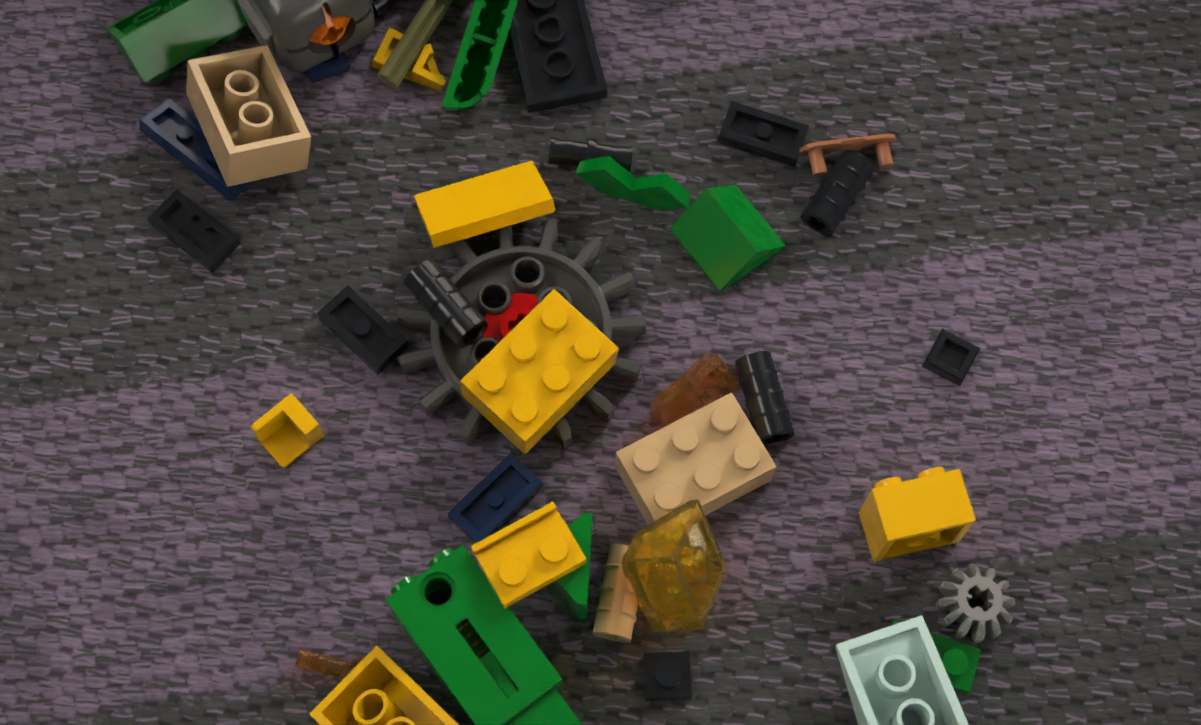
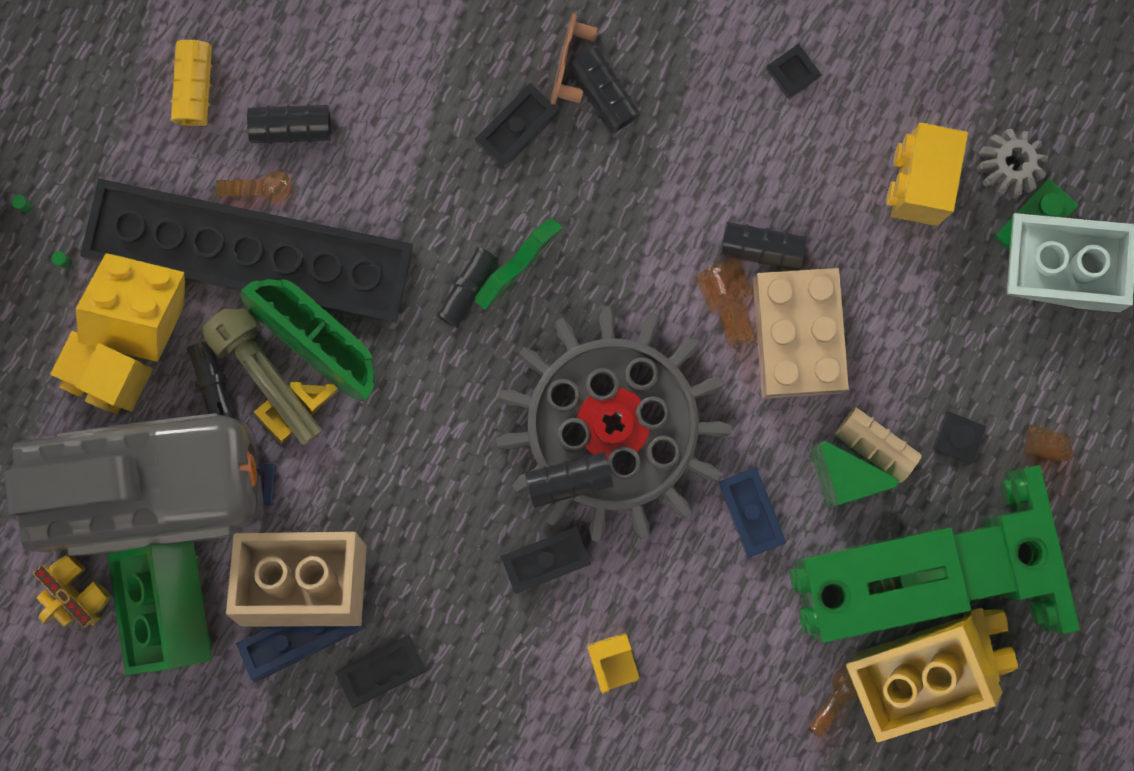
camera: 65 degrees left, 15 degrees up
(484, 203) = (477, 403): yellow tile -> none
(528, 555) = (840, 509): yellow plate -> none
(539, 371) = (672, 427): yellow brick -> none
(676, 569) = (887, 391): clear yellow slope -> none
(726, 235) = (599, 204): green slope -> none

